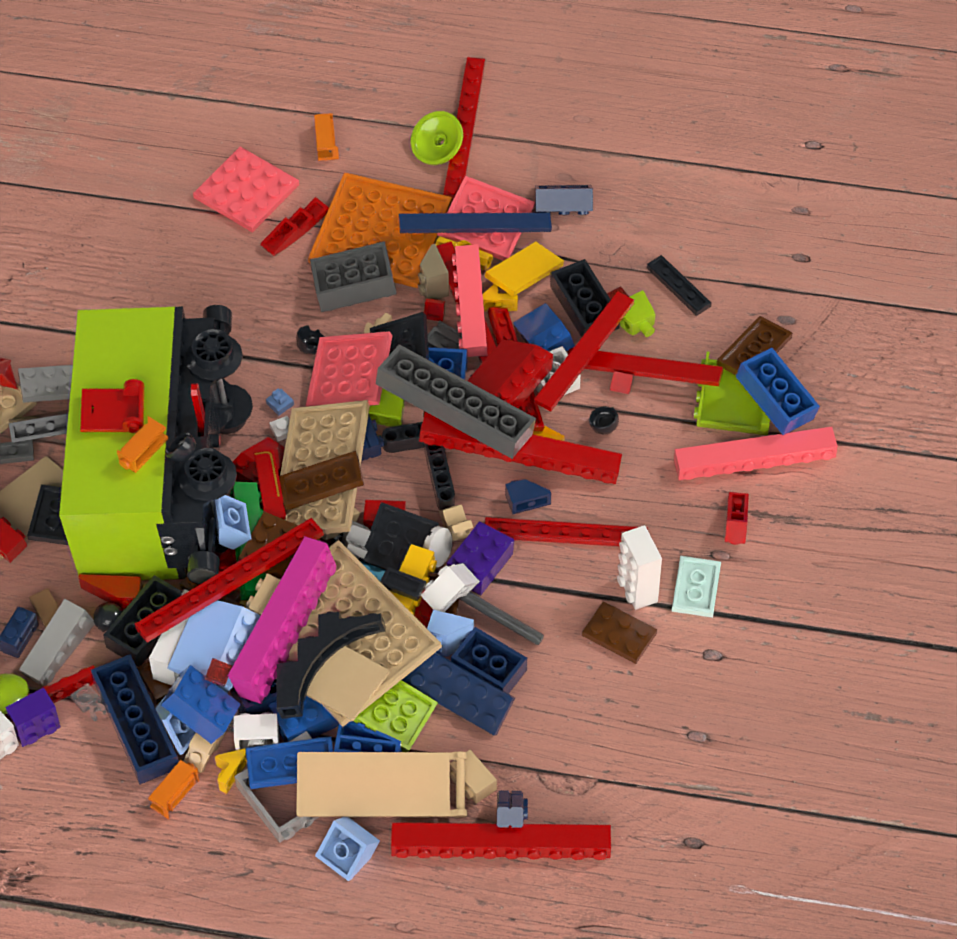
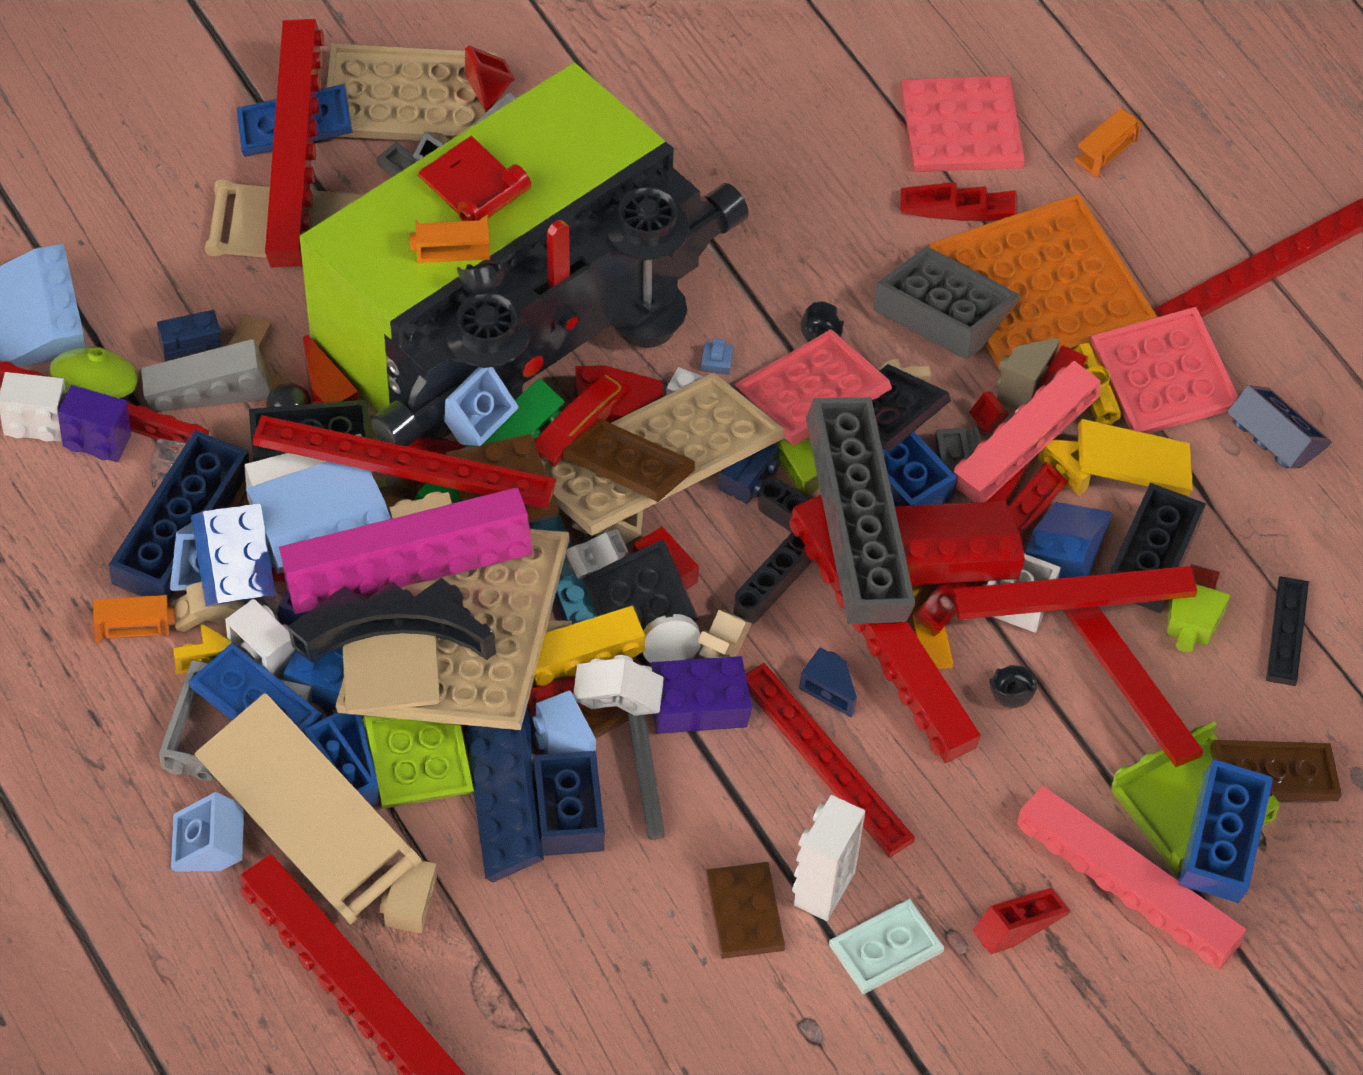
camera: 45 degrees right, 0 degrees up
(218, 672) = (274, 535): clear red tile -> none
(403, 583) = (571, 635): black tile -> none
(431, 132) = (1219, 243): lime dish -> none
(474, 222) = (1142, 363): dark blue tile -> none
(511, 808) = (395, 959): brick -> none
(621, 382) = (1085, 667): tile -> none

